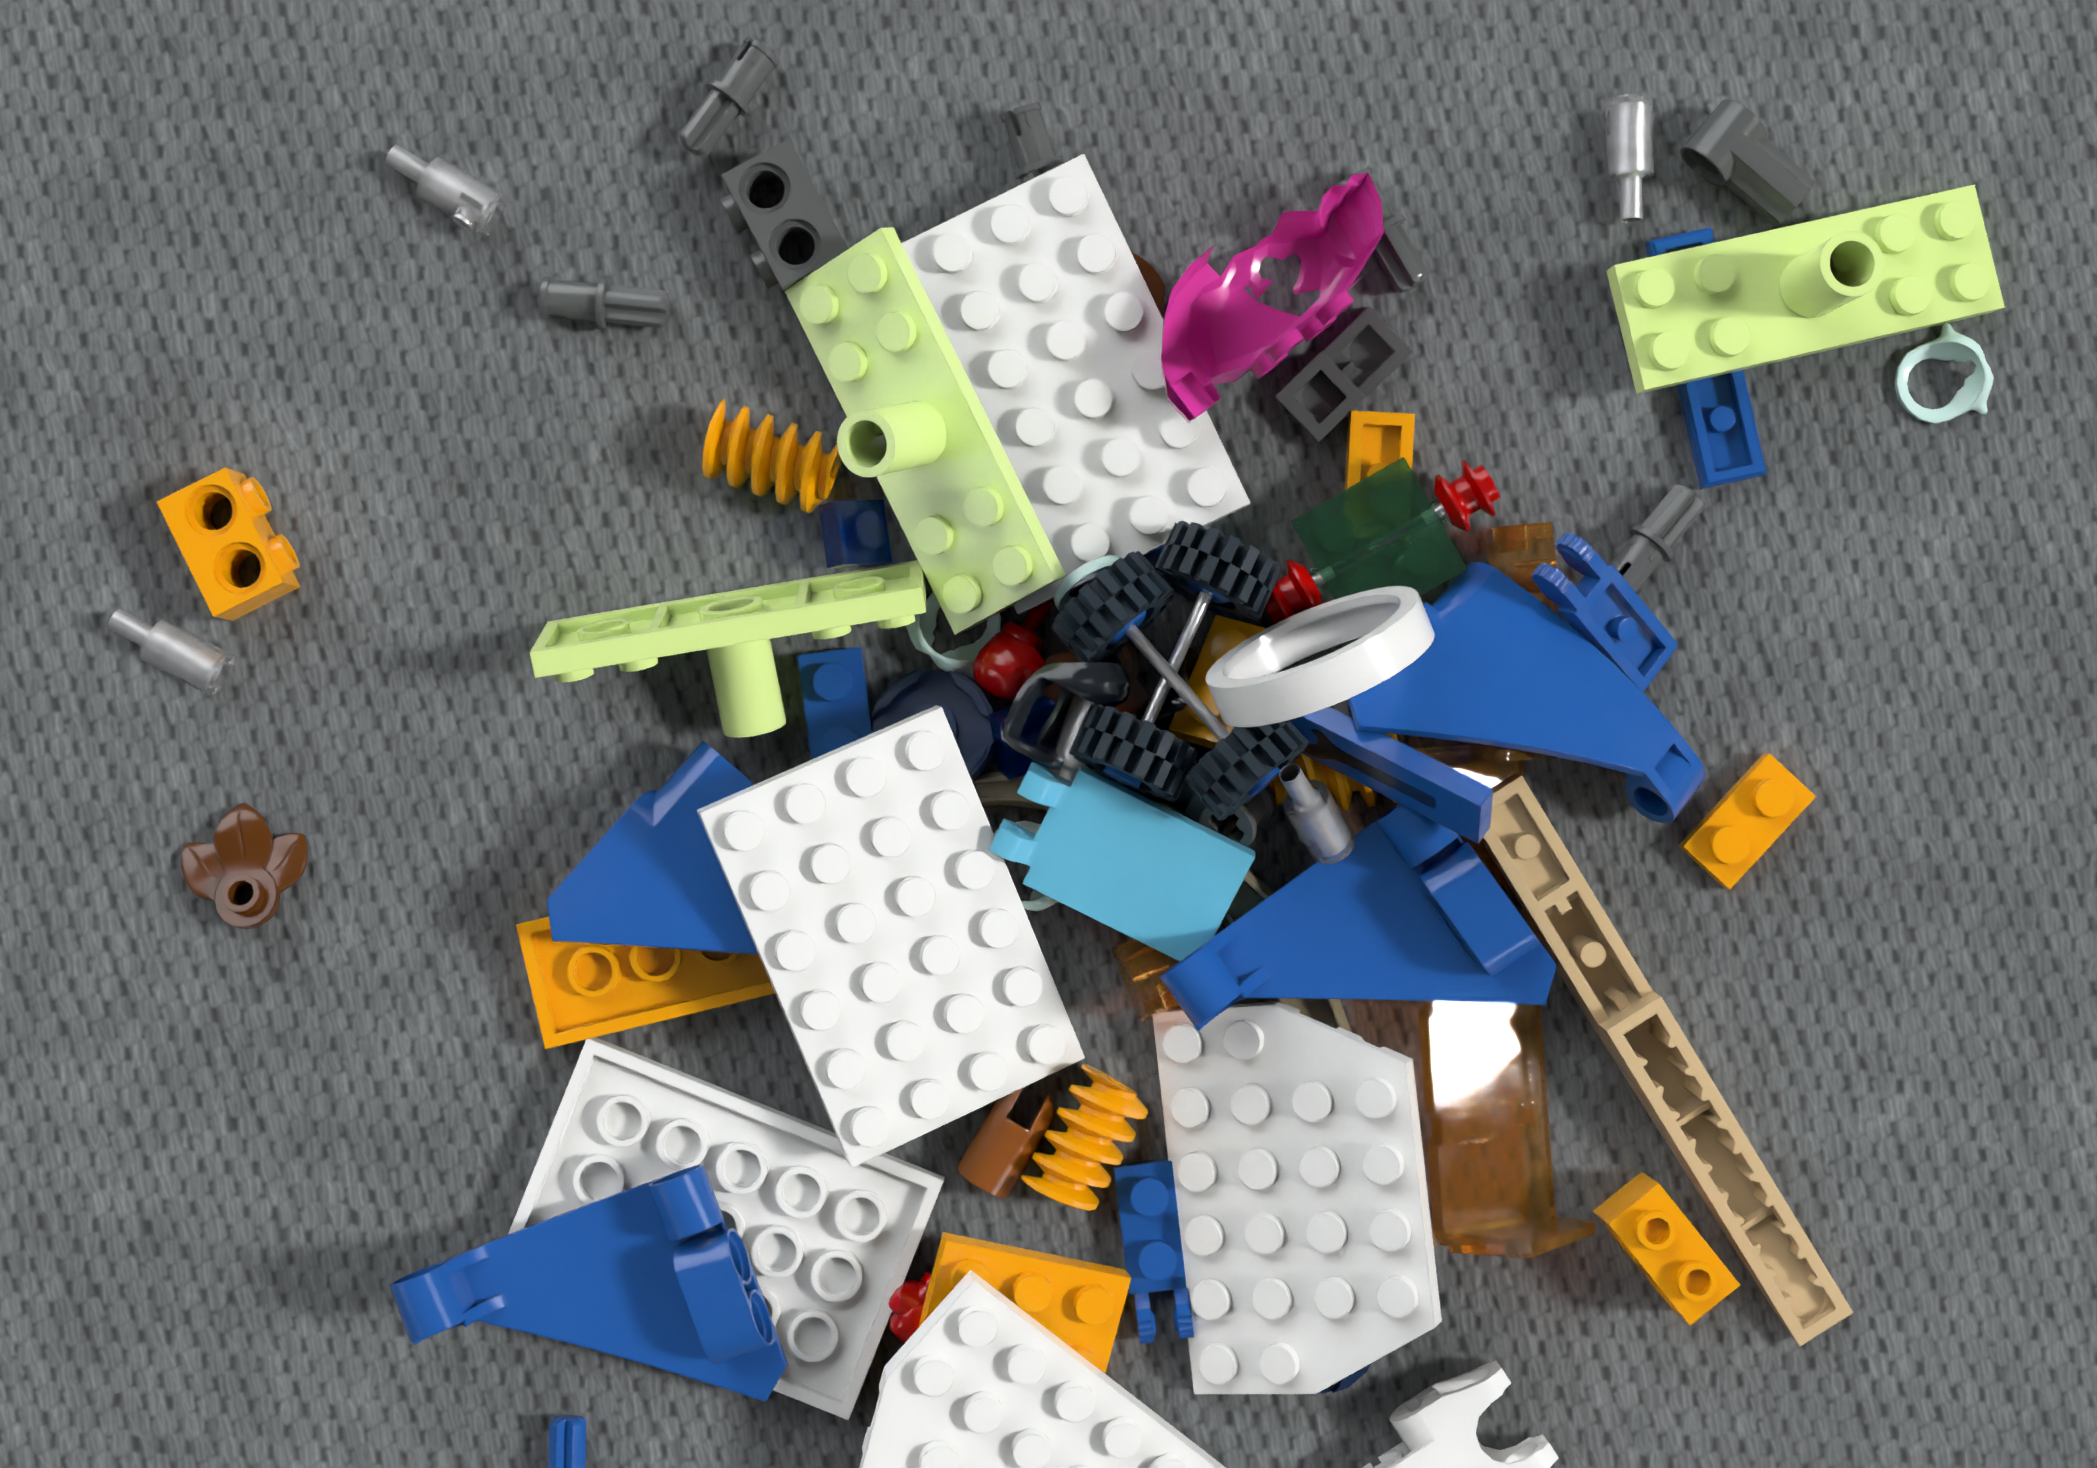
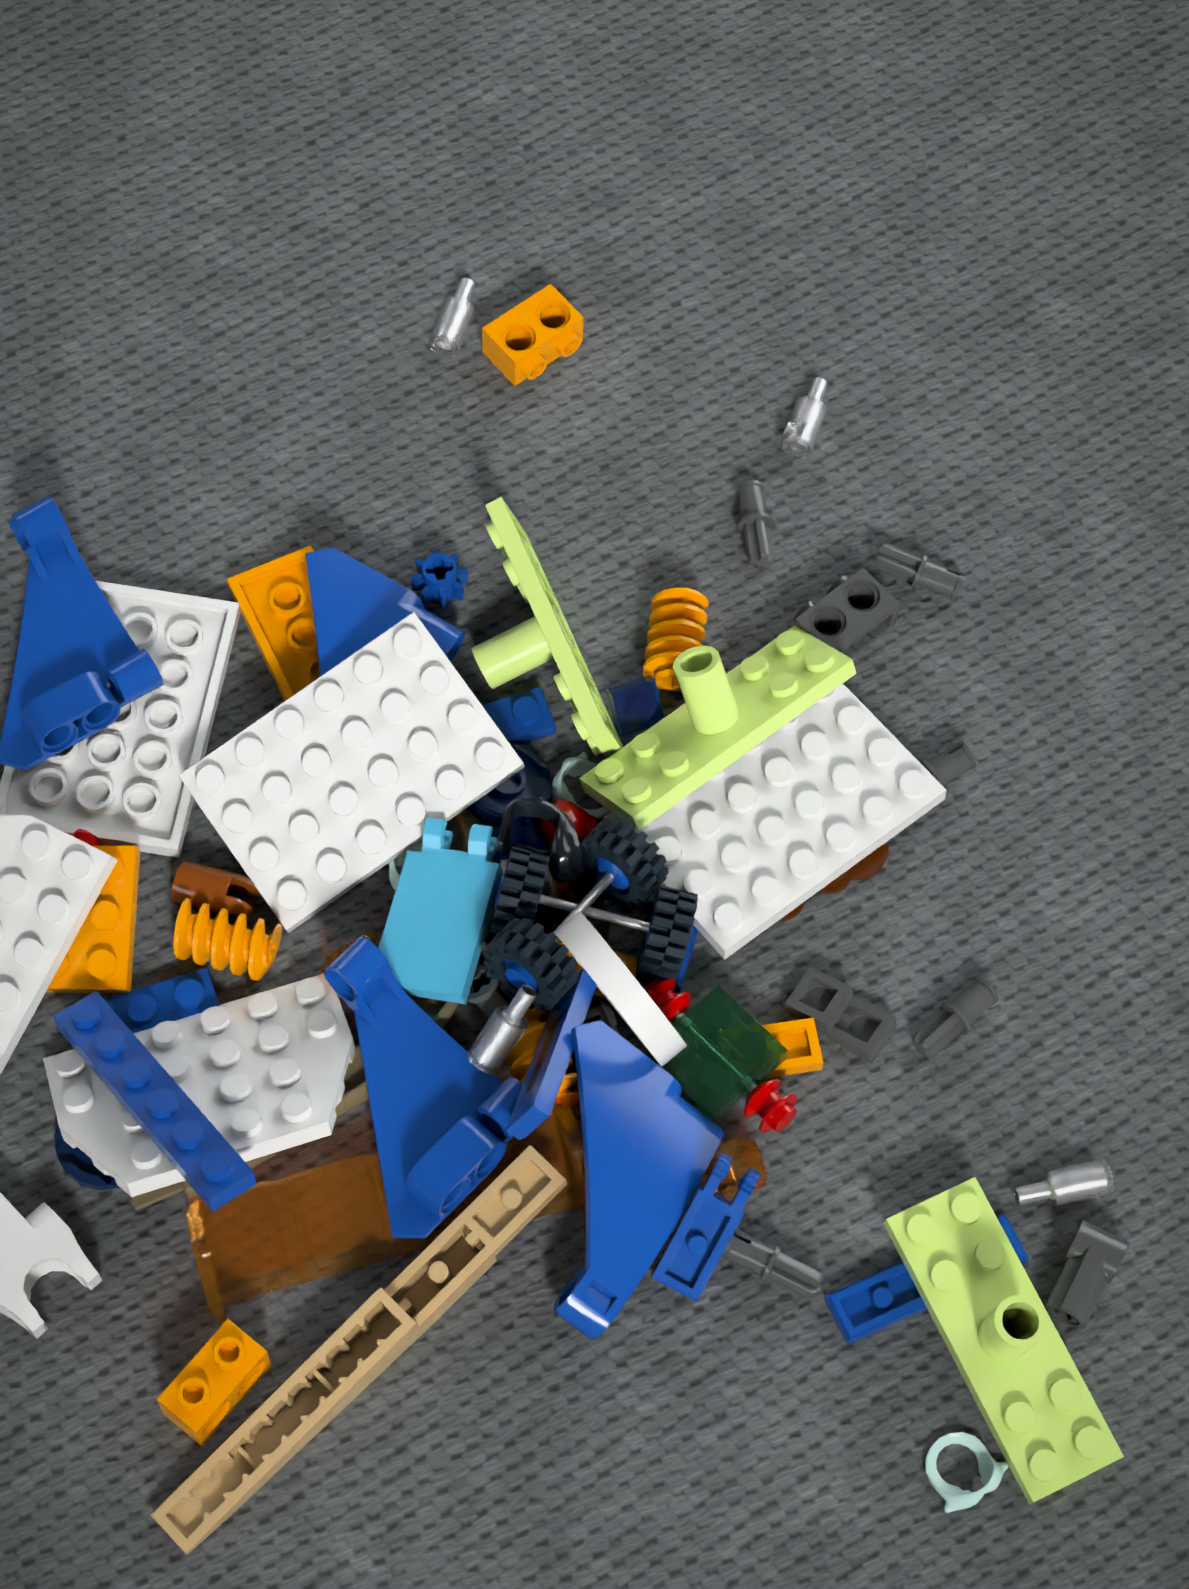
camera: 75 degrees right, 25 degrees down
(242, 857) = (316, 385): reddish brown plate -> none
(594, 770) = (439, 591): none -> blue gear
(1221, 332) = (849, 913): dark pink animal -> none
(1326, 1275) = (155, 1101): none -> blue plate
(1747, 821) = (569, 1386): light orange plate -> none

